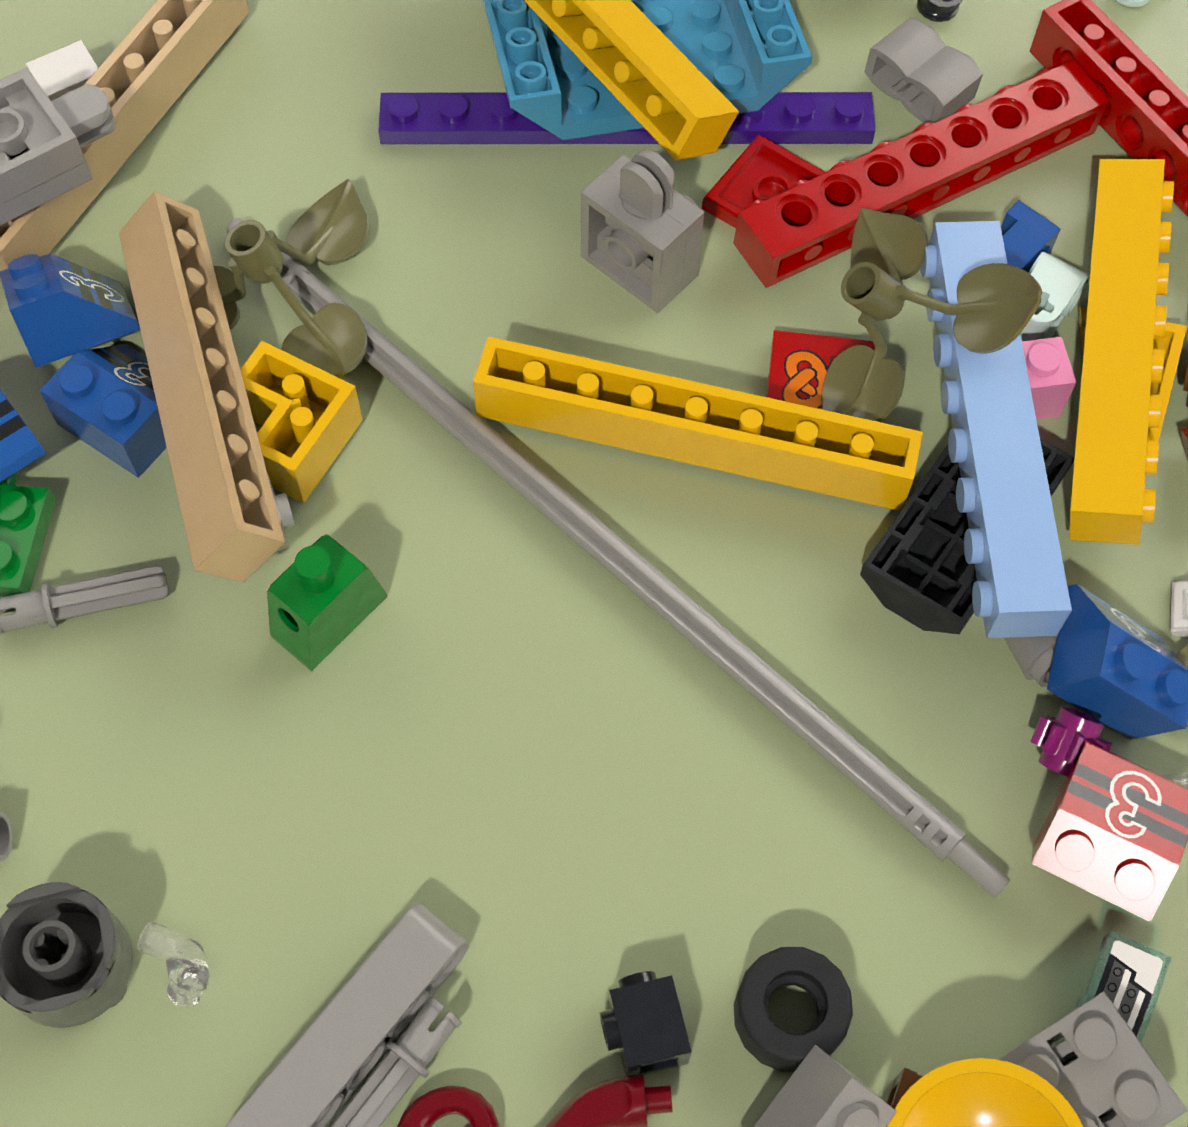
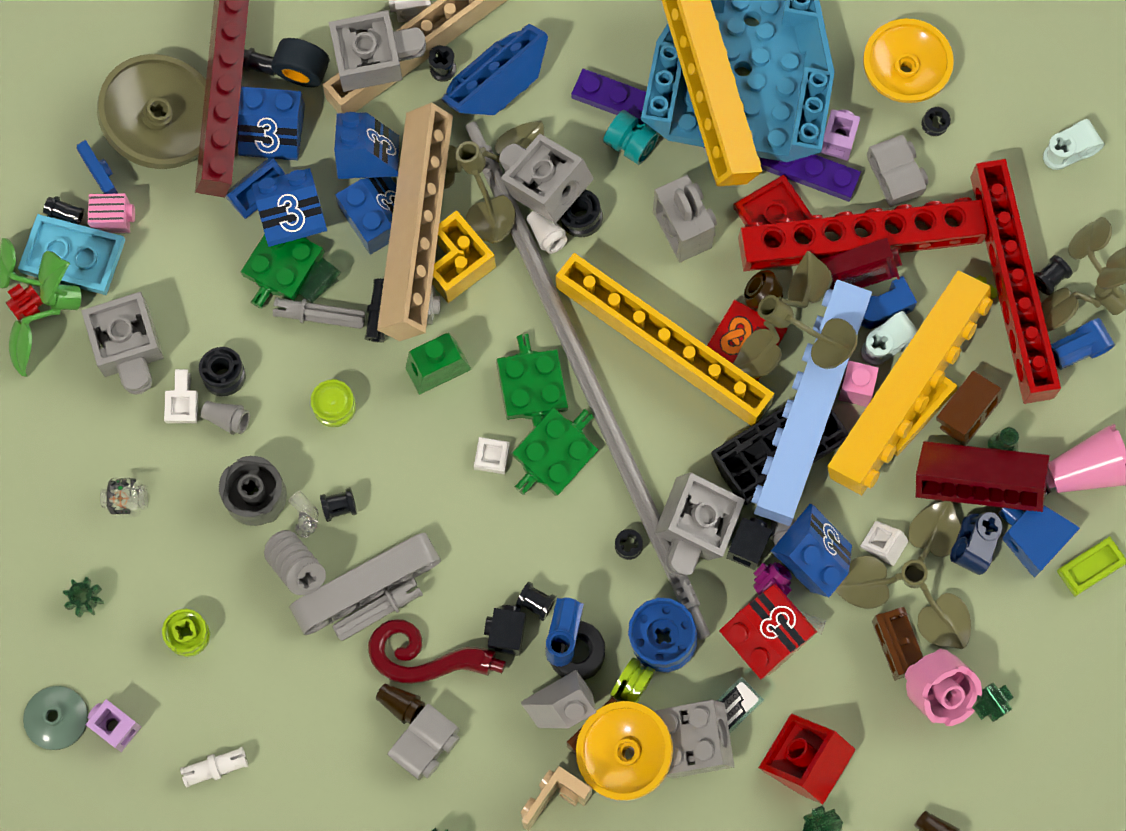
camera: 25 degrees right, 10 degrees up
(62, 541) = (319, 280): none -> clear green cone
(149, 155) = (442, 63): none -> black bush
(160, 739) = (333, 403): none -> lime wheel
(189, 1063) = (294, 563): none -> light grey piece
(190, 585) = (373, 311): none -> black pin
(235, 917) = (338, 504): none -> black bush
(255, 132) = (498, 73): none -> blue wedge
(390, 242) = (544, 176): none -> light grey brick
(428, 336) = (548, 234): none -> white cone
(469, 289) = (588, 223): none -> black wheel
(483, 723) = (491, 455): none -> white tile
(500, 155) = (631, 137): none -> teal wheel
(503, 580) = (531, 382): none -> green plate
(591, 673) = (554, 451): none -> green plate
(677, 947) = (536, 601): none -> black bush
(762, 977) = (564, 630): none -> blue piece
(804, 766) = (623, 536): none -> black bush
(814, 299) = (760, 286): none -> dark brown cone
(827, 51) = (836, 144): none -> lavender brick
(900, 688) = (696, 522): none -> light grey brick
(924, 1024) = (632, 681): none -> lime wheel
(964, 192) = (864, 264): none -> dark red window
(973, 904) = (657, 617): none -> blue wheel
(1000, 693) = (749, 542): none -> black brick

